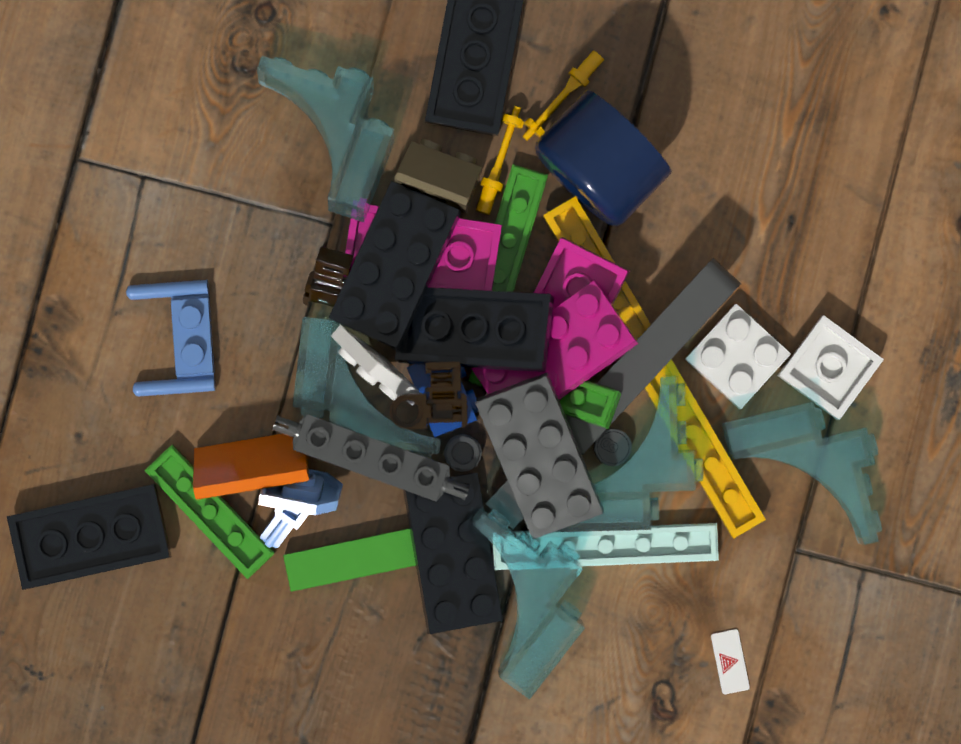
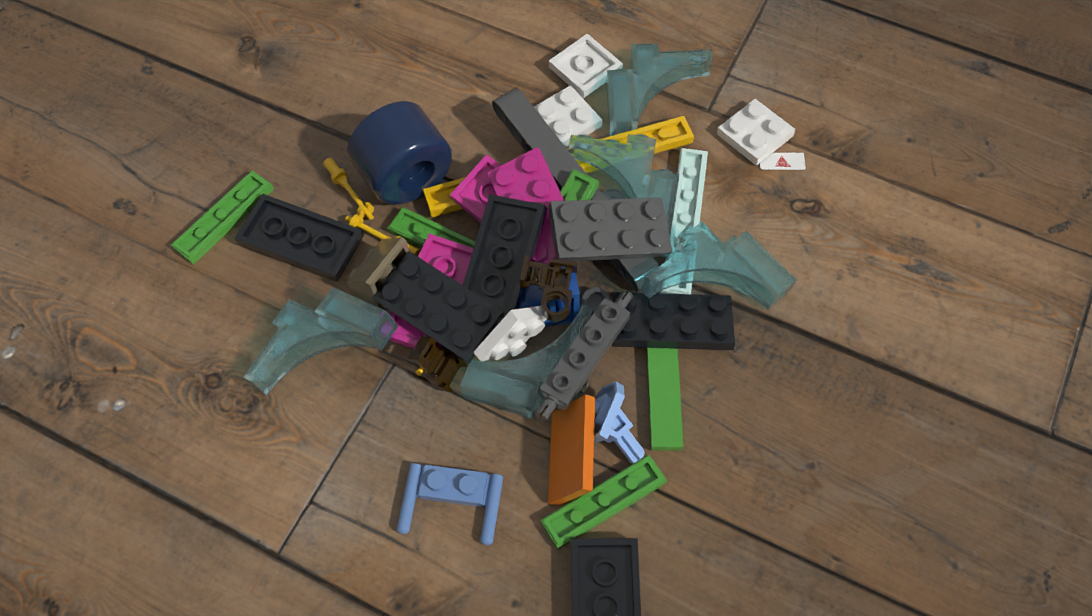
camera: 70 degrees left, 25 degrees down
(767, 620) = (755, 131): none -> white plate

